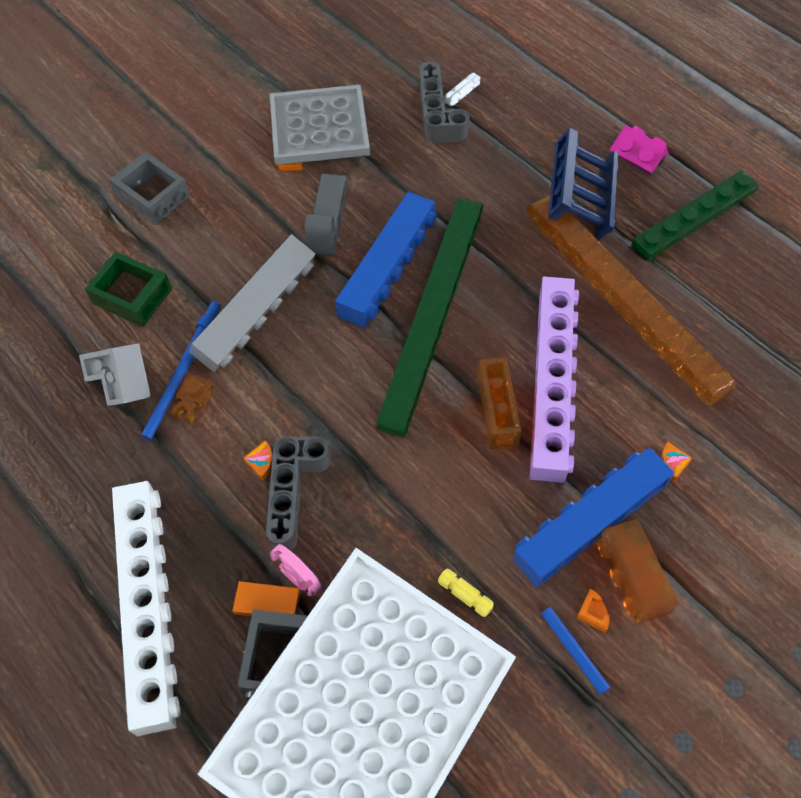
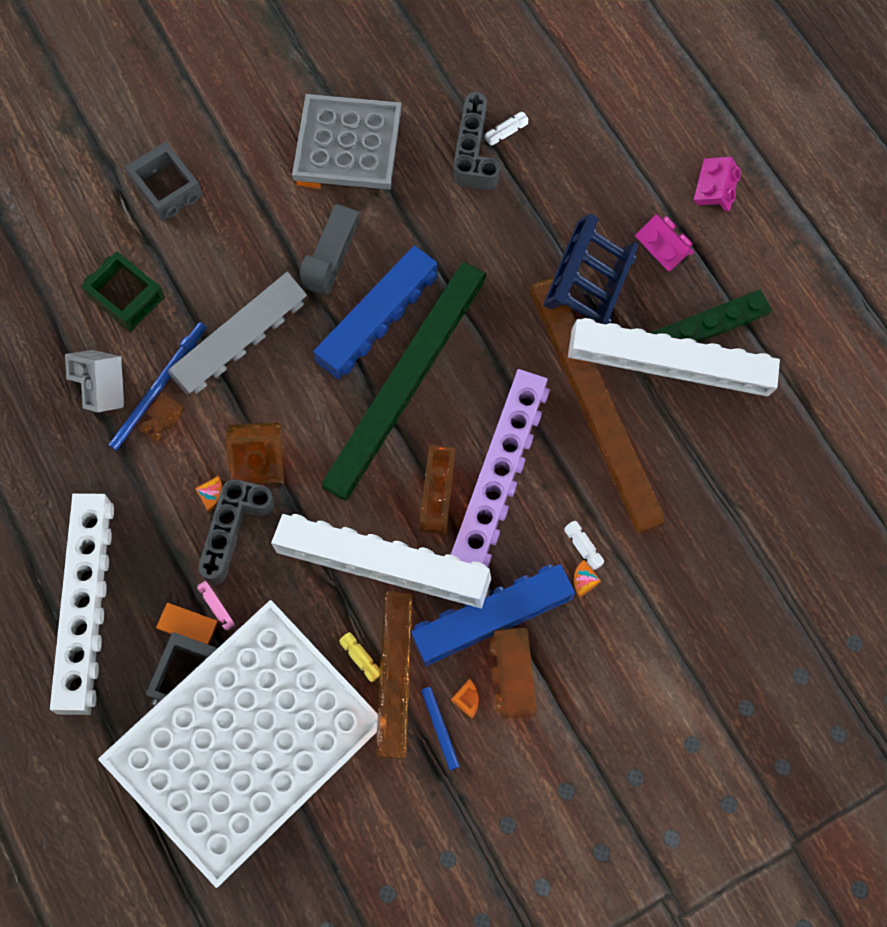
camera: 10 degrees right, 10 degrees up
(300, 408) = (256, 452): none -> clear orange slope
(463, 483) = (382, 560): none -> white brick
(510, 606) = (394, 676): none -> clear orange tile
(661, 427) = (584, 545): none -> white axle
(668, 94) = (717, 182): none -> dark pink bracket
(688, 237) = (673, 357): none -> white brick

